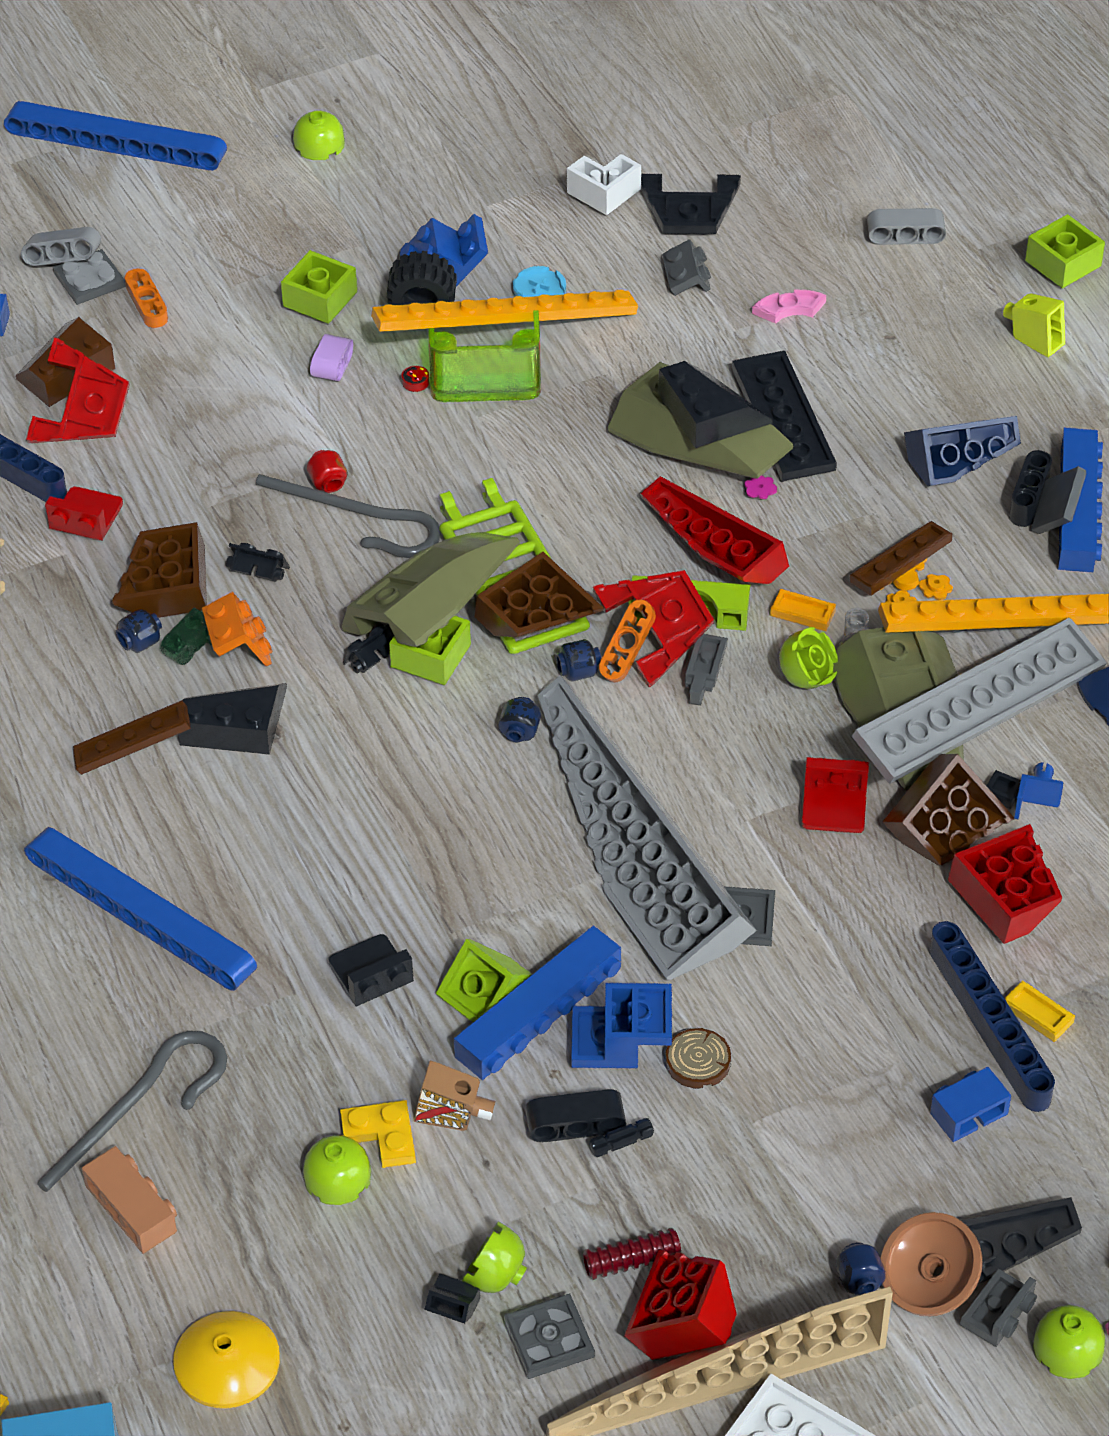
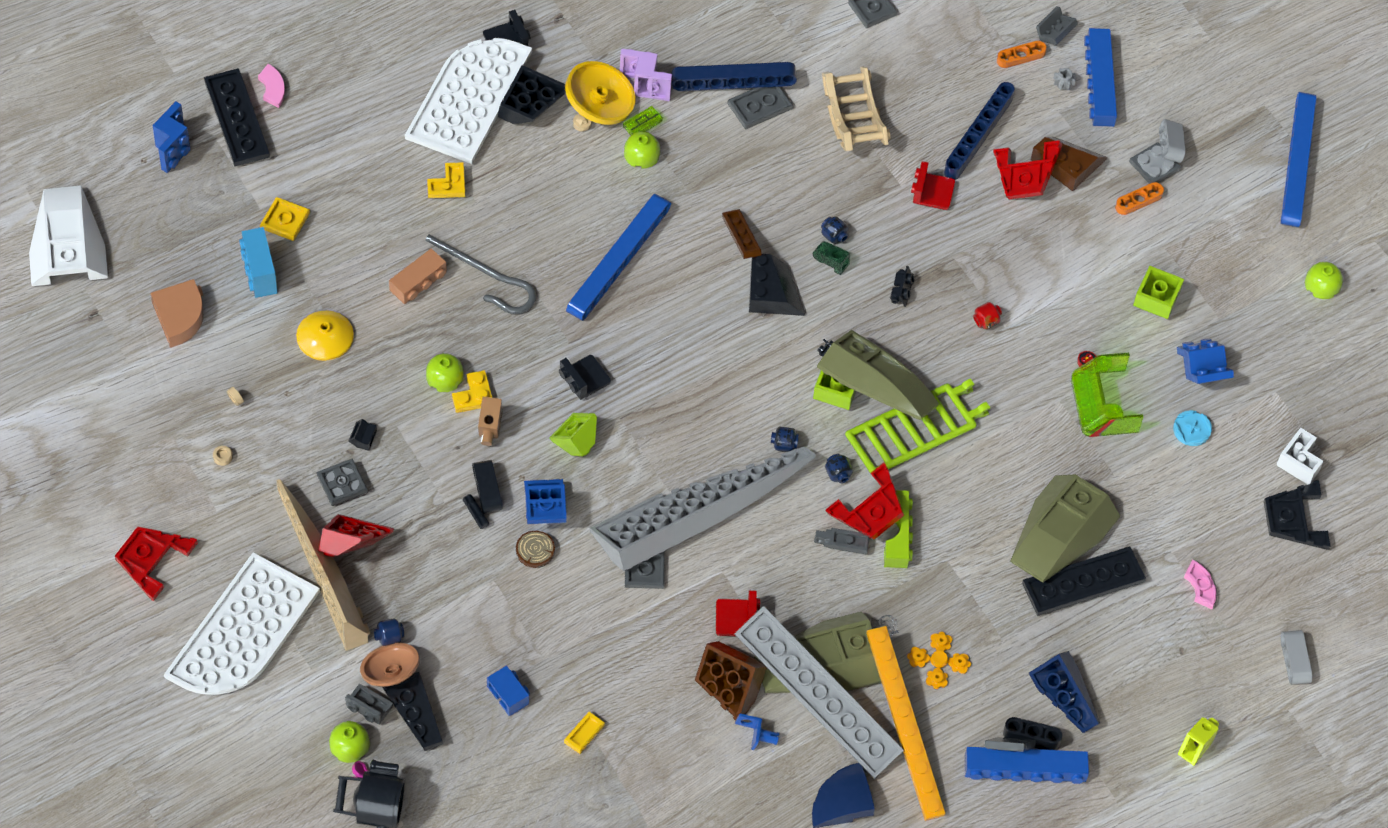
camera: 80 degrees right, 10 degrees up
(165, 572) = (881, 236): reddish brown wedge -> none
(233, 624) = (833, 279): orange bracket -> none
(331, 357) = (1095, 308): lavender beam -> none
(365, 509) = (959, 345): dark grey piece -> none
(421, 271) = (1161, 349): black tyre -> none
(497, 1261) = (383, 450): lime cylinder -> none
(503, 310) = (1145, 401): light orange plate -> none
(533, 600) = (873, 434): reddish brown wedge -> none
(537, 1003) = (566, 462): blue brick -> none
(611, 657) = (835, 485): orange beam -> none
(629, 1253) = (395, 518): dark red piece -> none
(686, 267) = (1225, 517): dark grey bracket -> none
(705, 405) = (1057, 518): black wedge -> none
(718, 534) = (949, 544): red wedge -> none
(760, 487) = (1012, 575): dark pink plant -> none
(803, 610) = (903, 598): light orange tile -> none
(808, 659) = (847, 595): lime cylinder -> none
(900, 558) = (952, 652): reddish brown tile -> none
(992, 1016) = (570, 710): dark blue beam -> none
(1004, 788) = (762, 712): black tile -> none
(1006, 883) = (674, 709): red wedge -> none
(1065, 251) = (1281, 759): lime brick -> none

